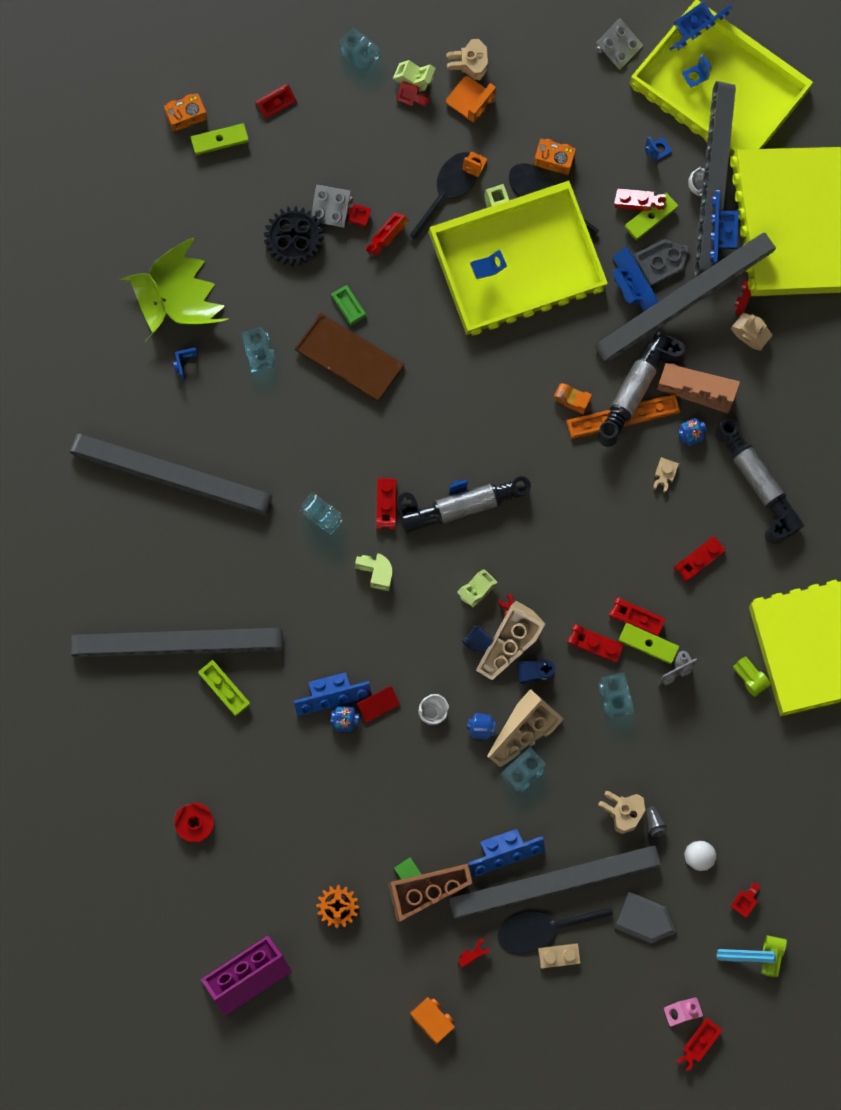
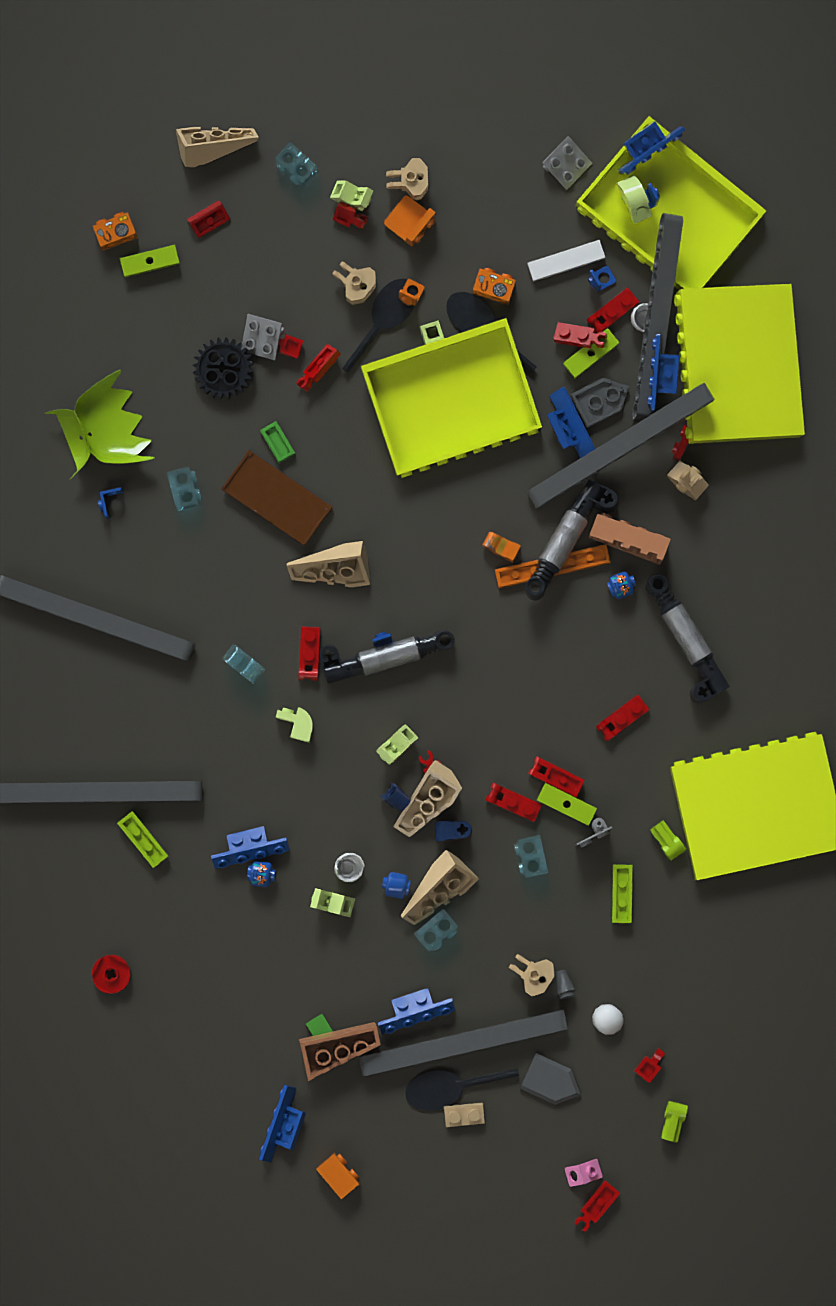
camera: 10 degrees right, 10 degrees up
(246, 975) = (158, 1126): magenta slope -> none
(266, 35) = (204, 146): none -> tan wedge
(327, 906) = (249, 1052): orange gear -> none
(375, 971) = (284, 1126): none -> blue bracket
(378, 704) = (295, 859): red slope -> none
(412, 418) = (339, 564): none -> tan wedge
(417, 745) = (332, 902): none -> yellowish green brick
(423, 155) = (355, 281): none -> tan hinge
(468, 957) = (374, 1114): red plate -> none
(487, 266) = (418, 409): blue bracket -> none
(622, 133) = (566, 260): none -> white tile
(665, 472) = (593, 626): tan plate -> none
(671, 177) = (613, 310): none -> red plate
(689, 70) = (635, 198): none -> yellowish green brick
(708, 729) = (622, 894): none -> lime plate
(746, 956) = (646, 1121): medium azure axle -> none

